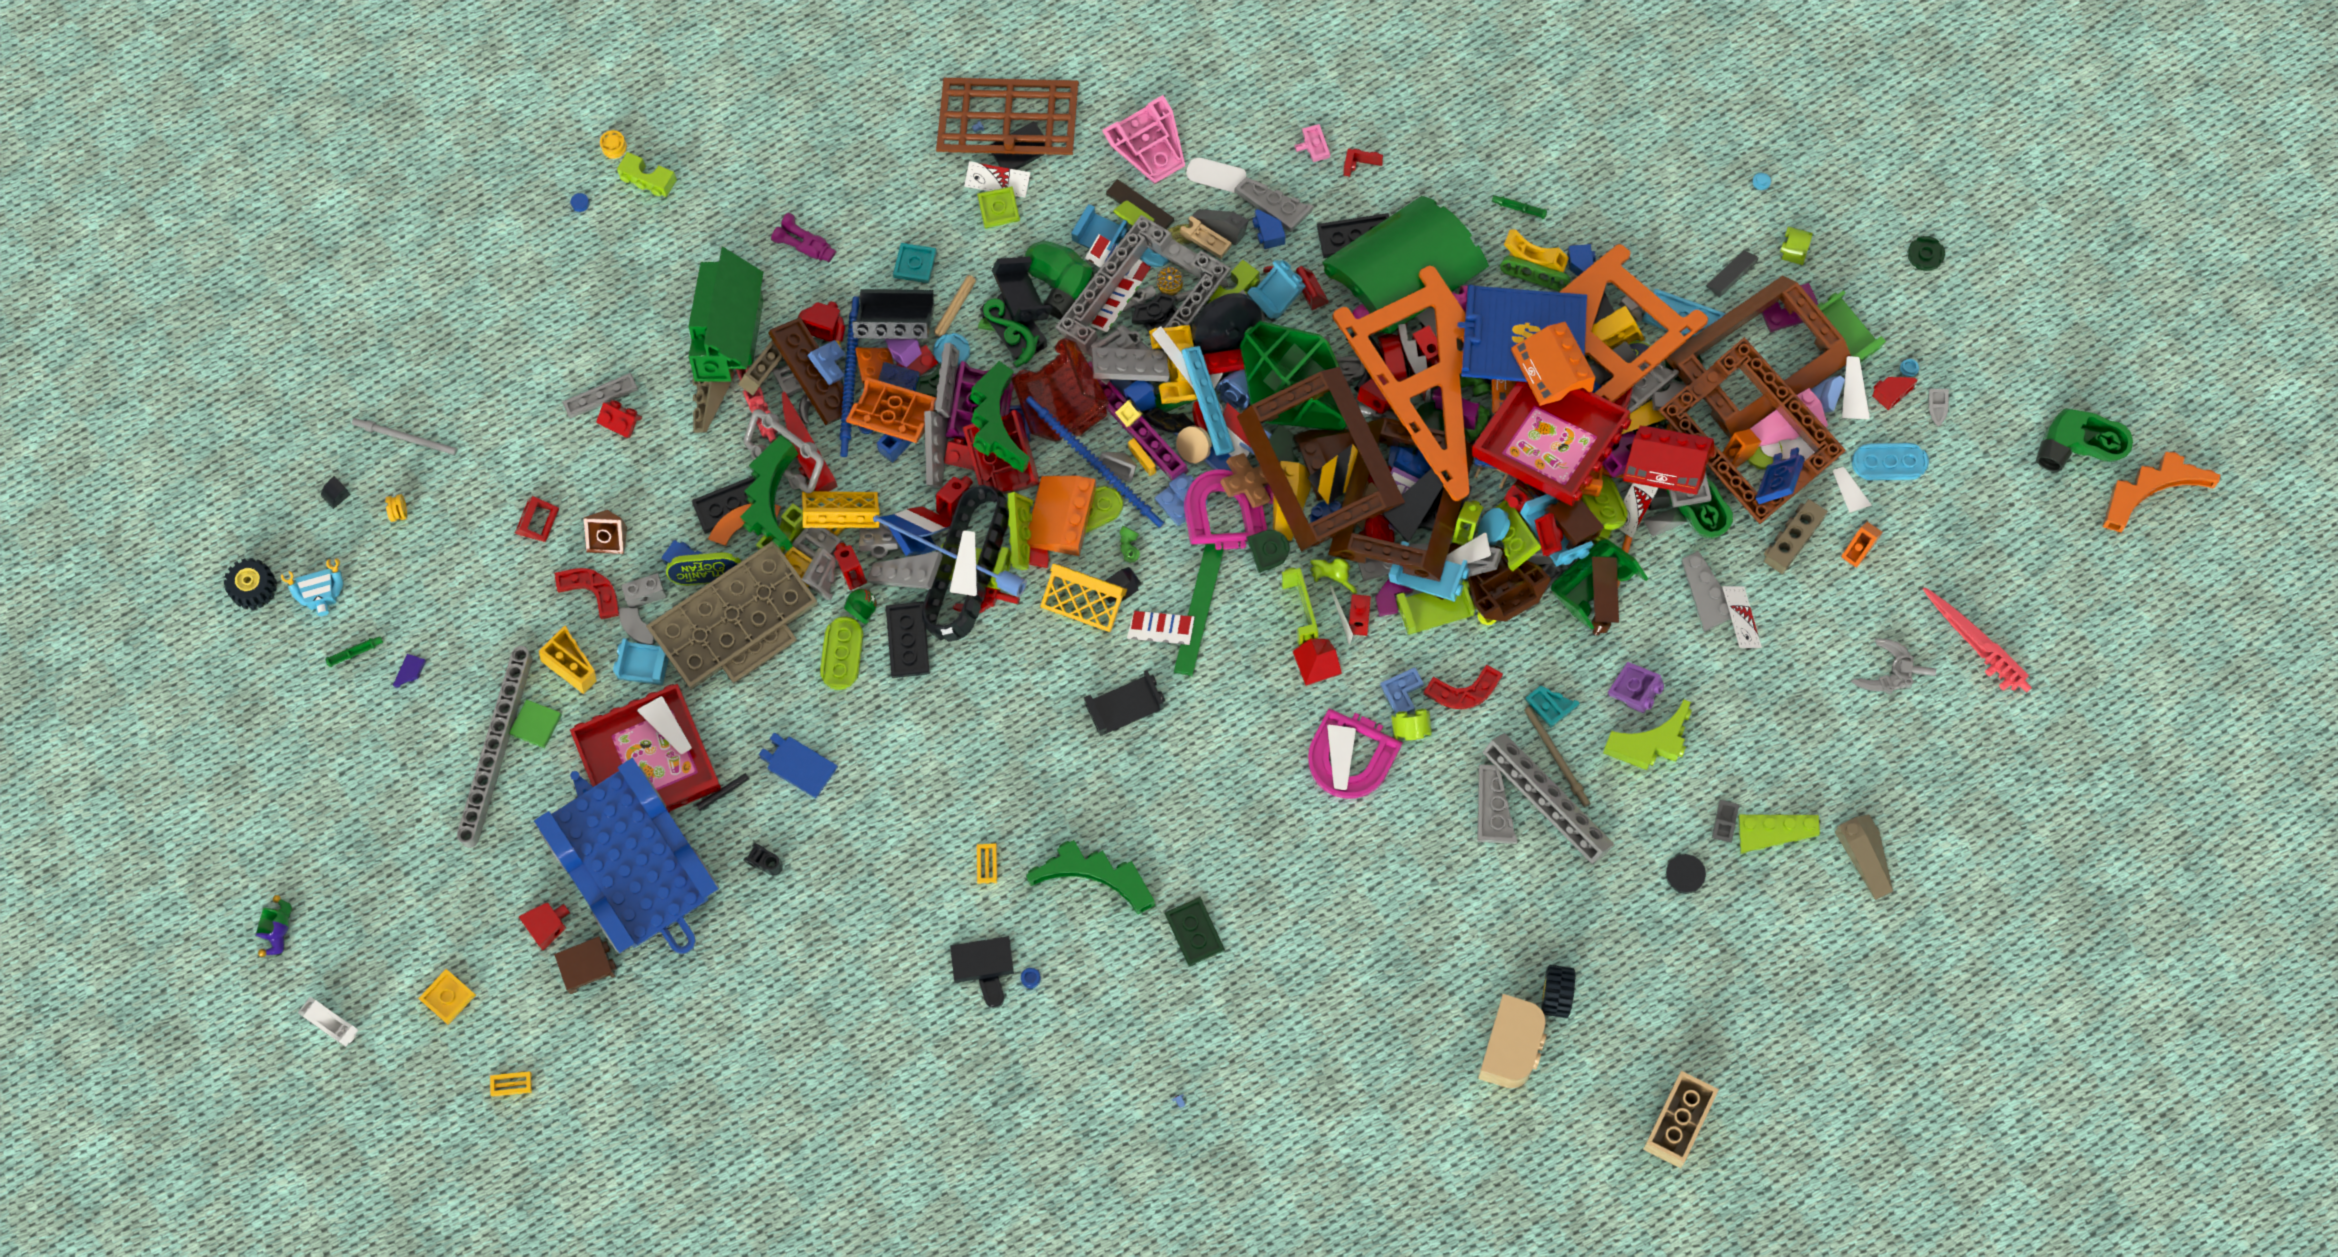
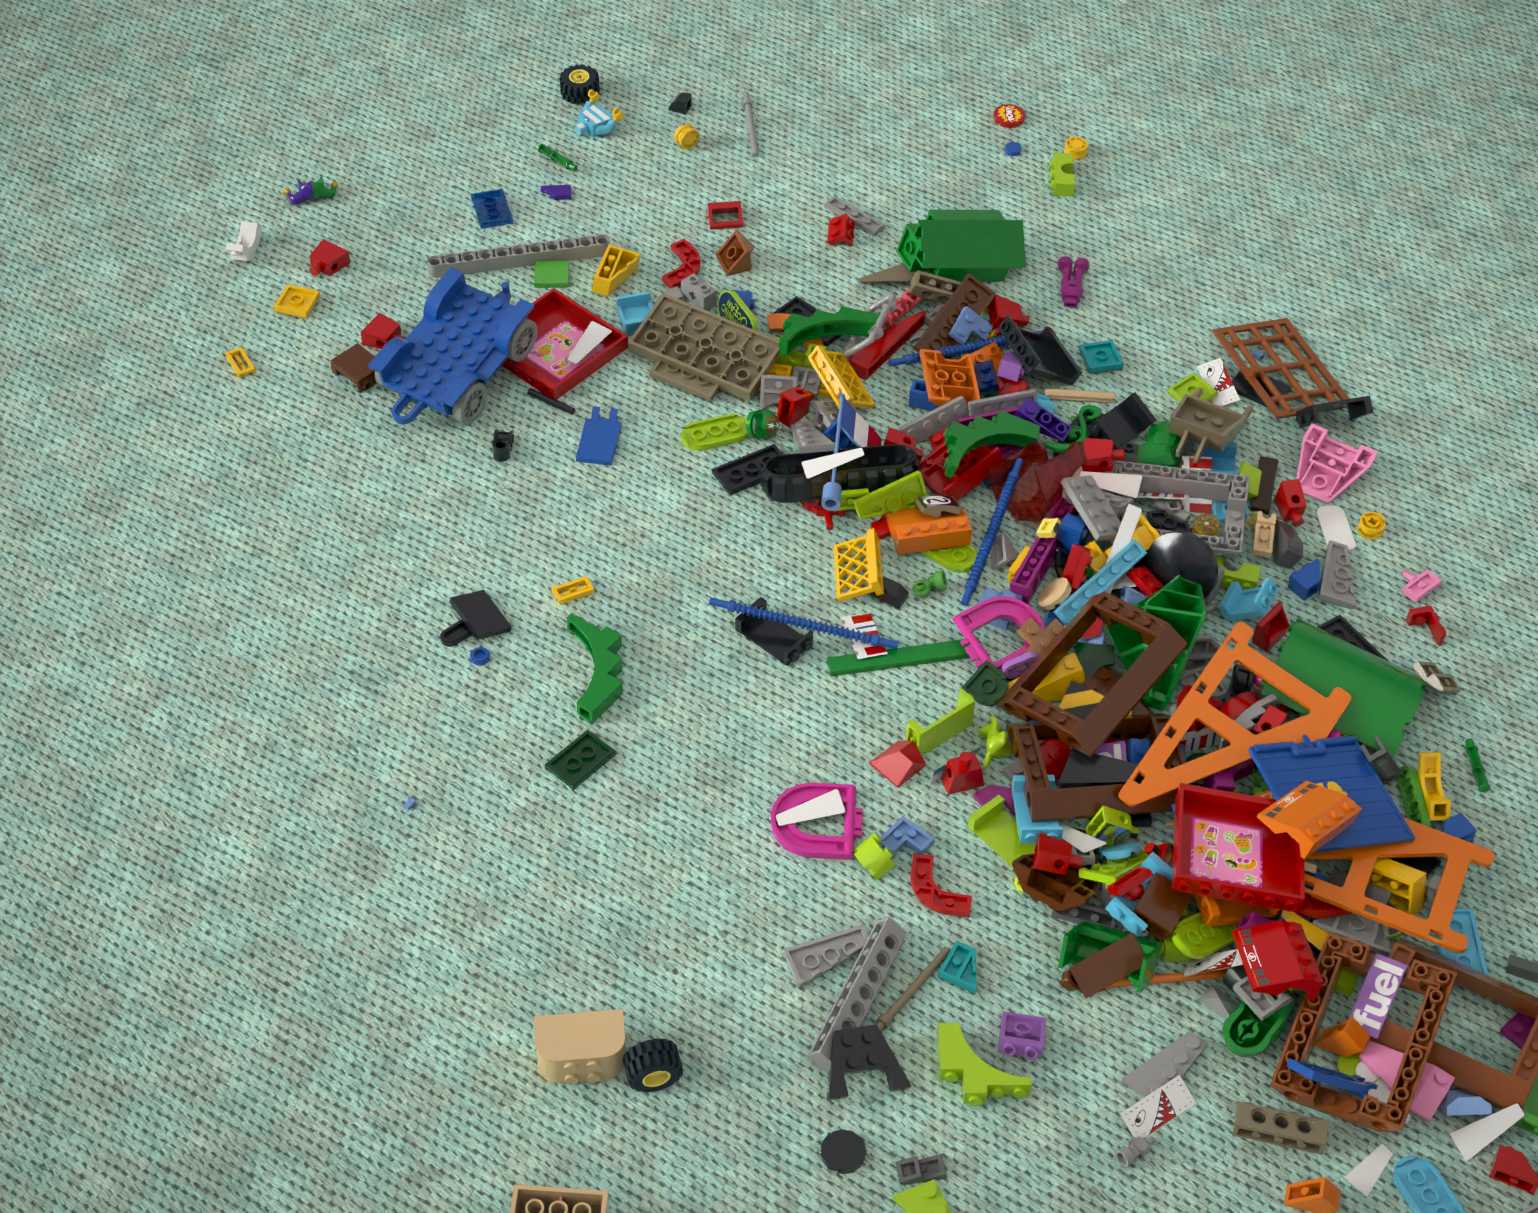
camera: 60 degrees right, 20 degrees down
(398, 943) = (328, 258): none -> red torso
(400, 747) = (491, 208): none -> clear blue tile
(527, 182) = (1009, 115): none -> tile
(988, 356) = (1049, 423): none -> dark purple slope
(1049, 494) = (935, 504): none -> slope
(1058, 325) = (1101, 455): none -> red torso
(1063, 218) = (1205, 424): none -> dark tan piece
(1085, 121) = (1357, 408): none -> black panel
(1089, 727) = (874, 639): none -> blue hose
(1095, 328) = (1118, 483): none -> white sticker
(1179, 196) = (1291, 501): none -> red torso
(1183, 410) = (1077, 562): none -> red bracket
(1231, 144) = (1372, 525): none -> yellow wheel
(1265, 518) = (1017, 666): none -> medium lavender plate
(1428, 187) = (1431, 675): none -> dark tan slope
(1487, 581) = (1054, 855): none -> red torso
(1497, 277) = (1383, 762): none -> dark grey window
(1609, 822) = (862, 1051): none -> black wing
(1722, 403) = (1378, 993): none -> sticker
(1769, 648) = (1138, 1146): none -> light grey piece

